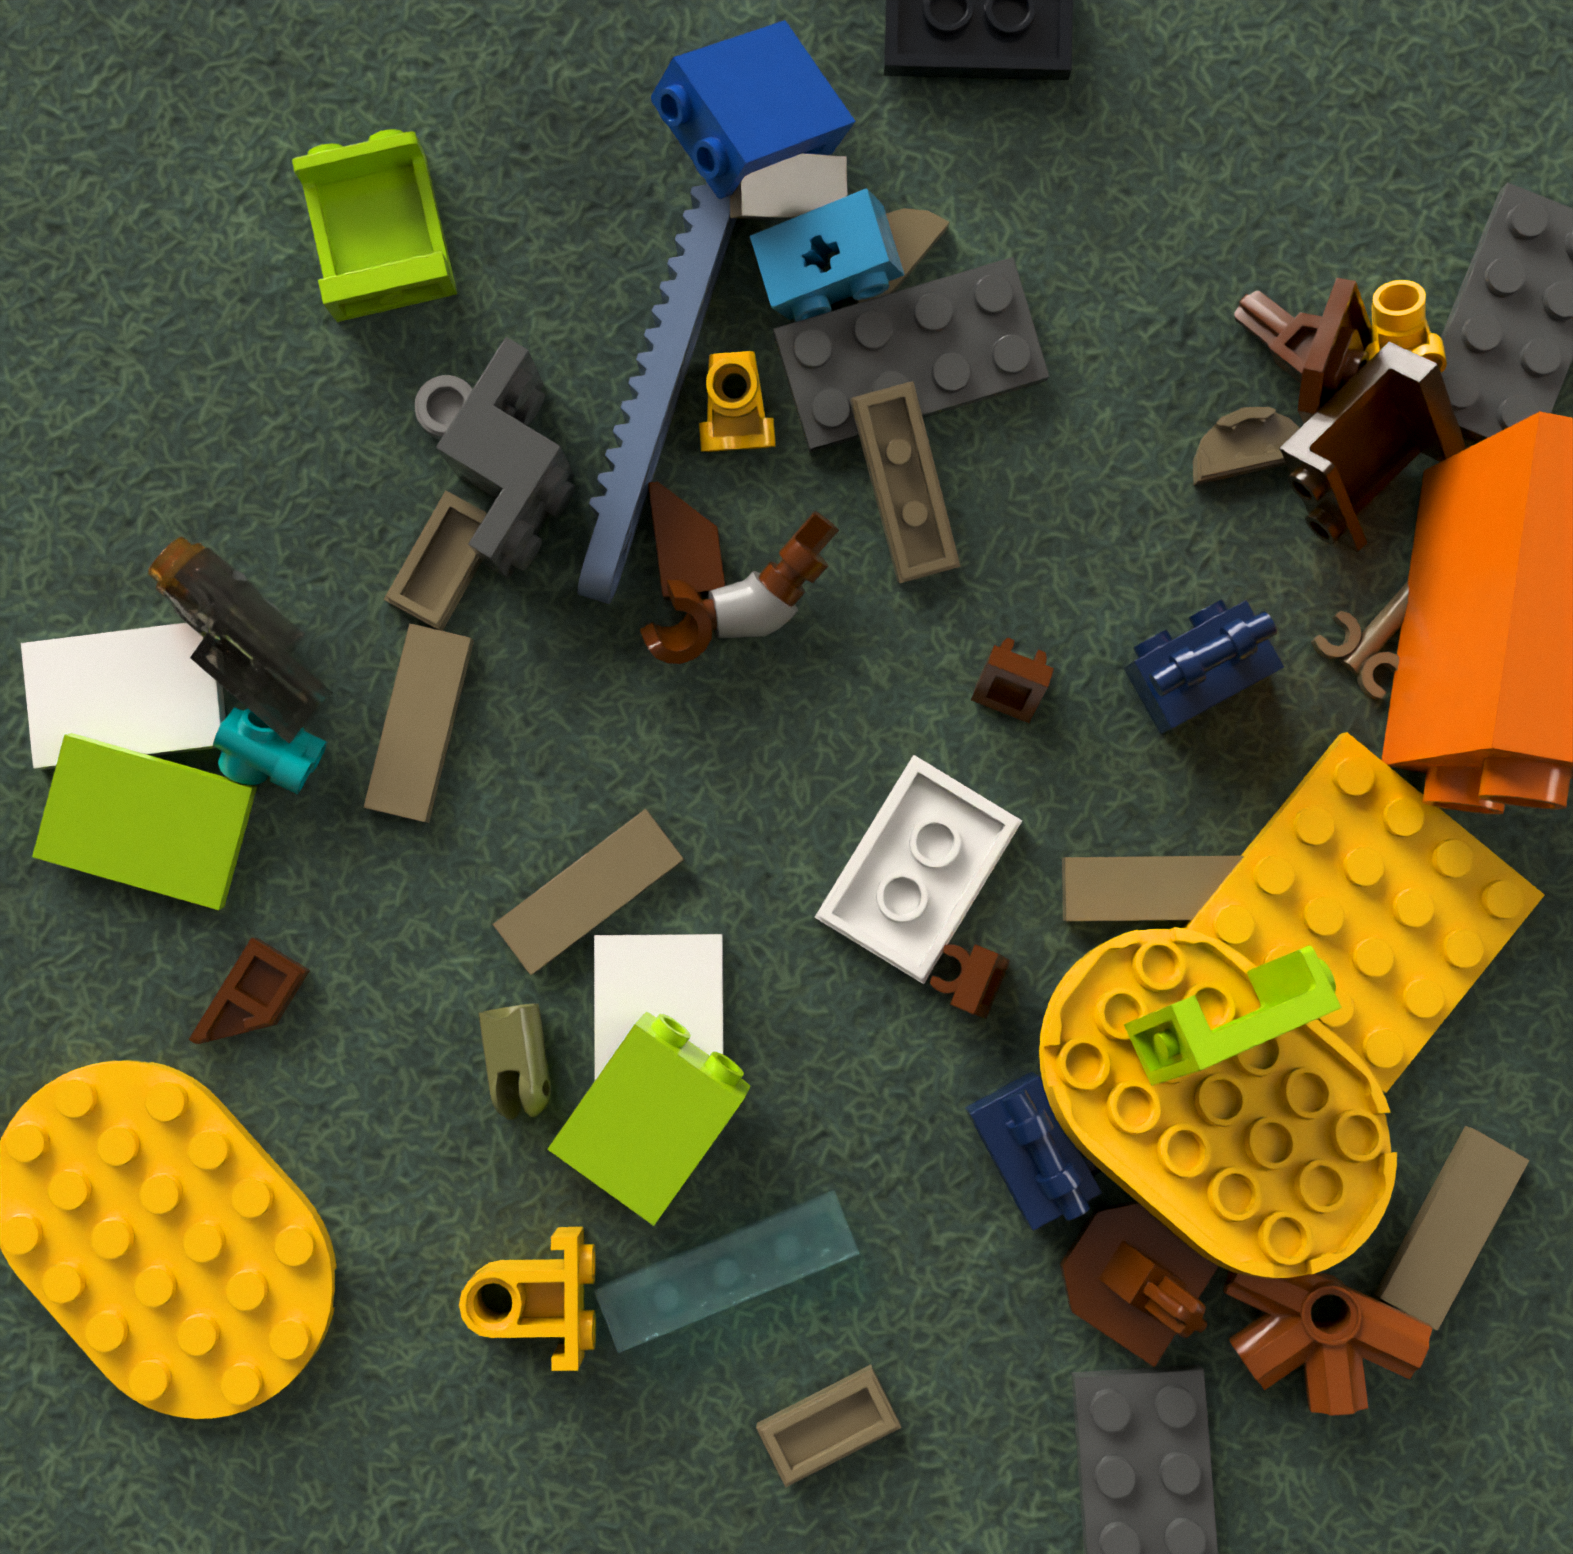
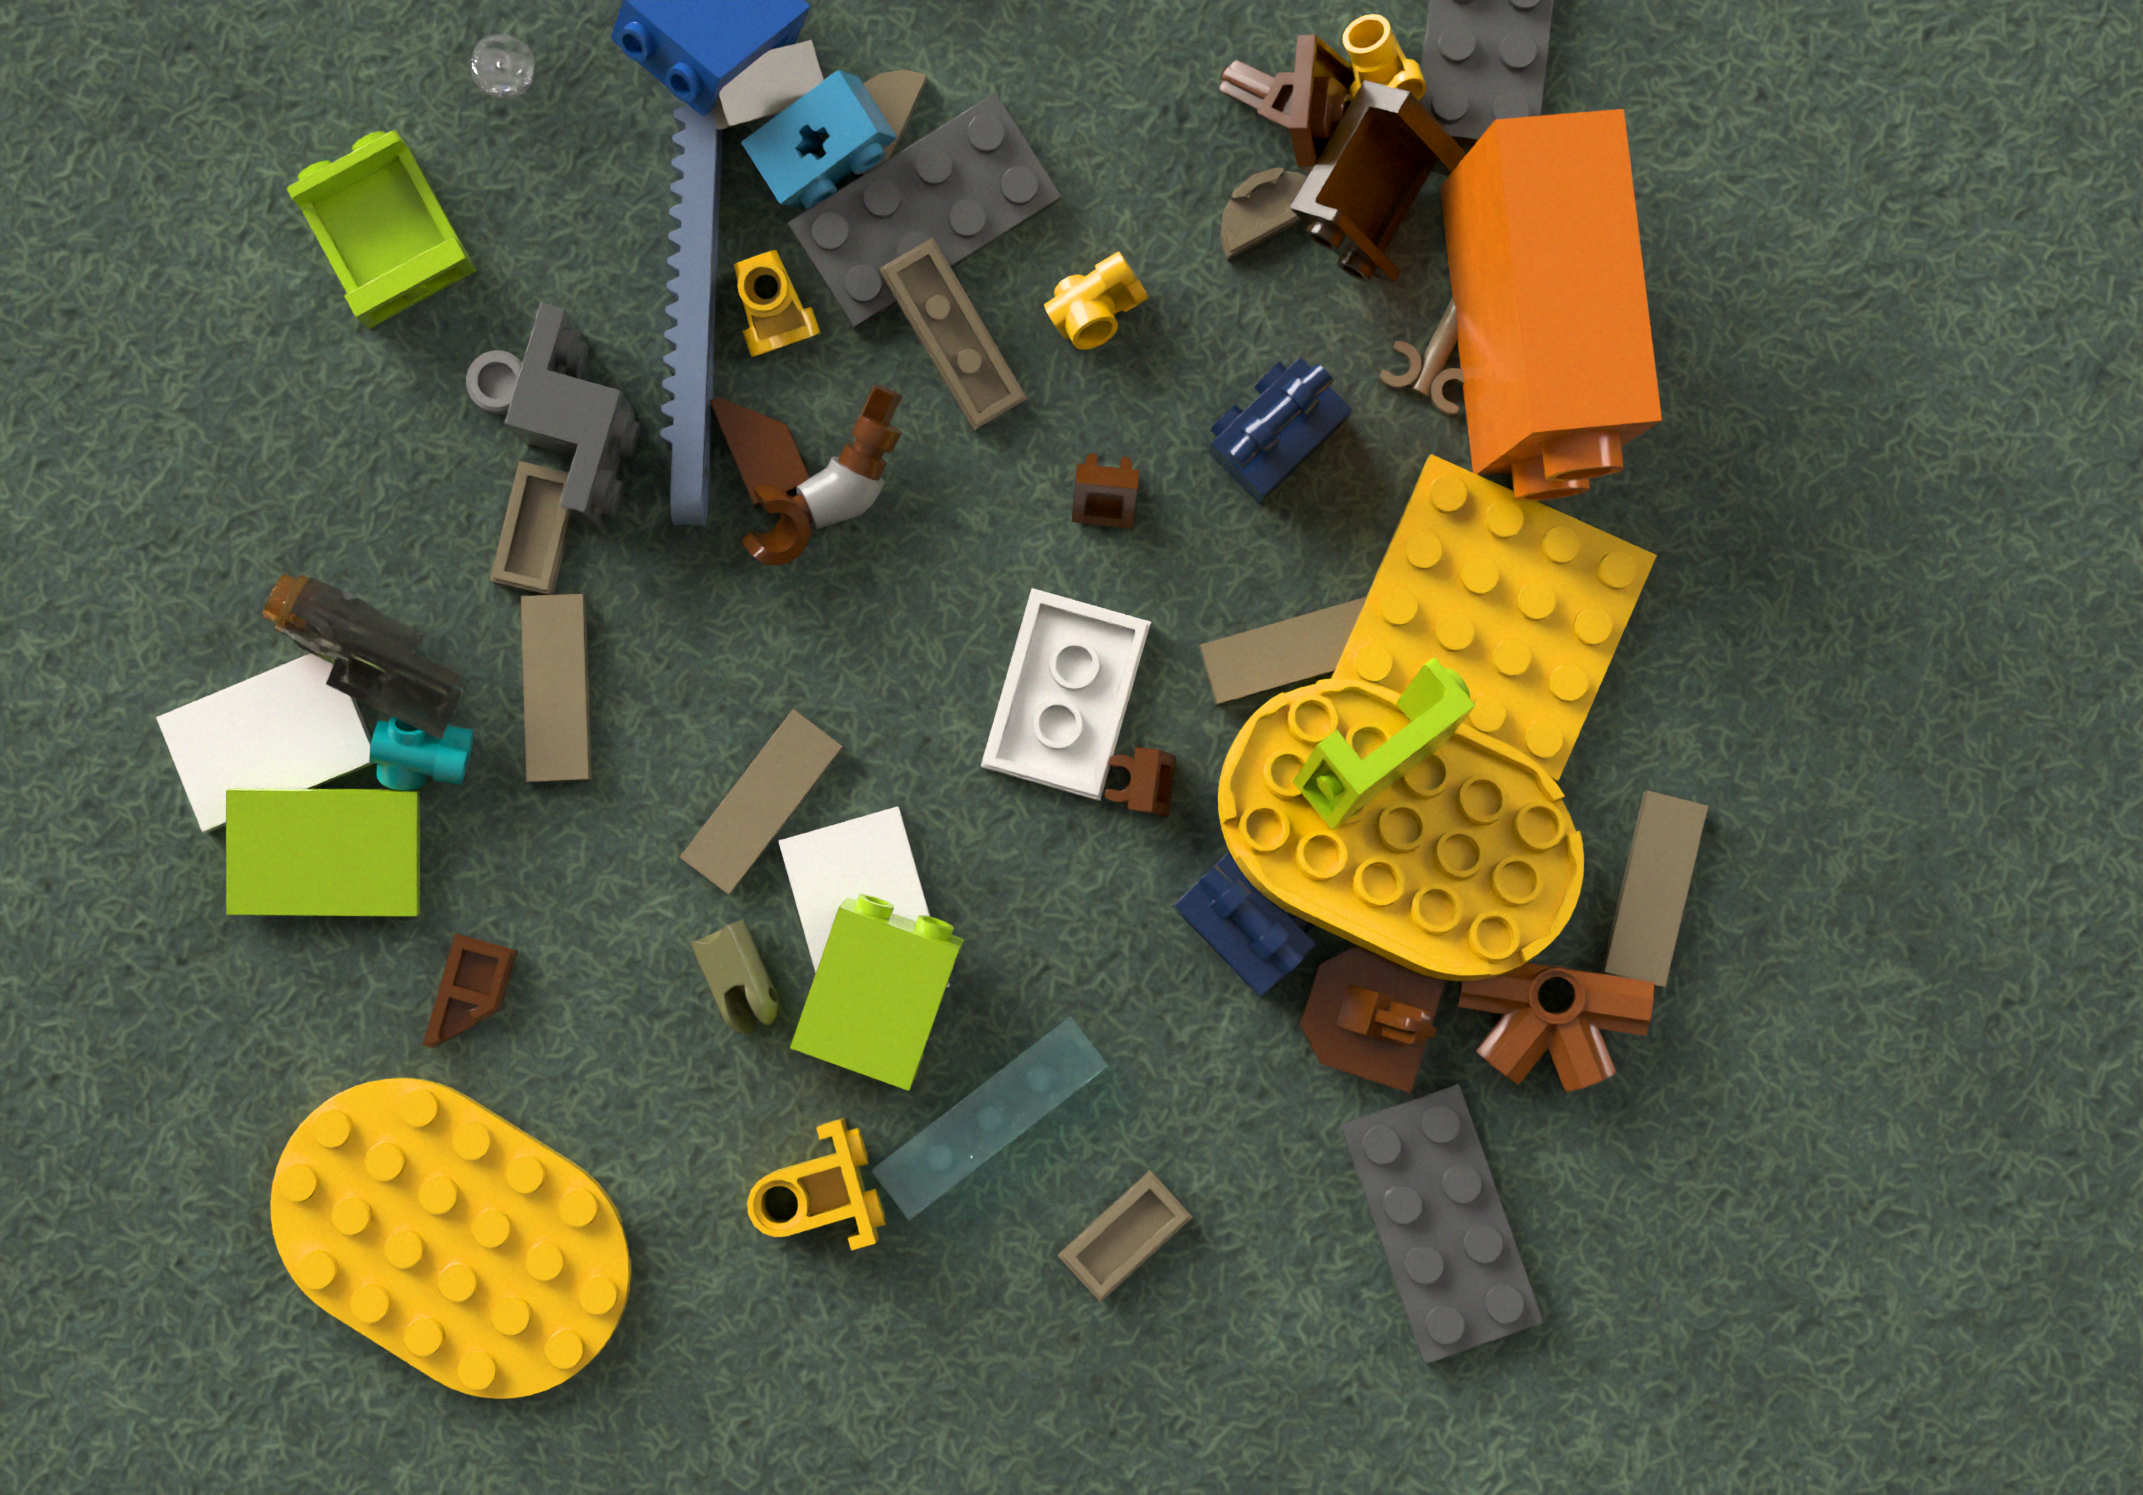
camera: 20 degrees left, 0 degrees up
(537, 101) = (502, 66): none -> clear tile
(1046, 490) = (1087, 304): none -> yellow plate

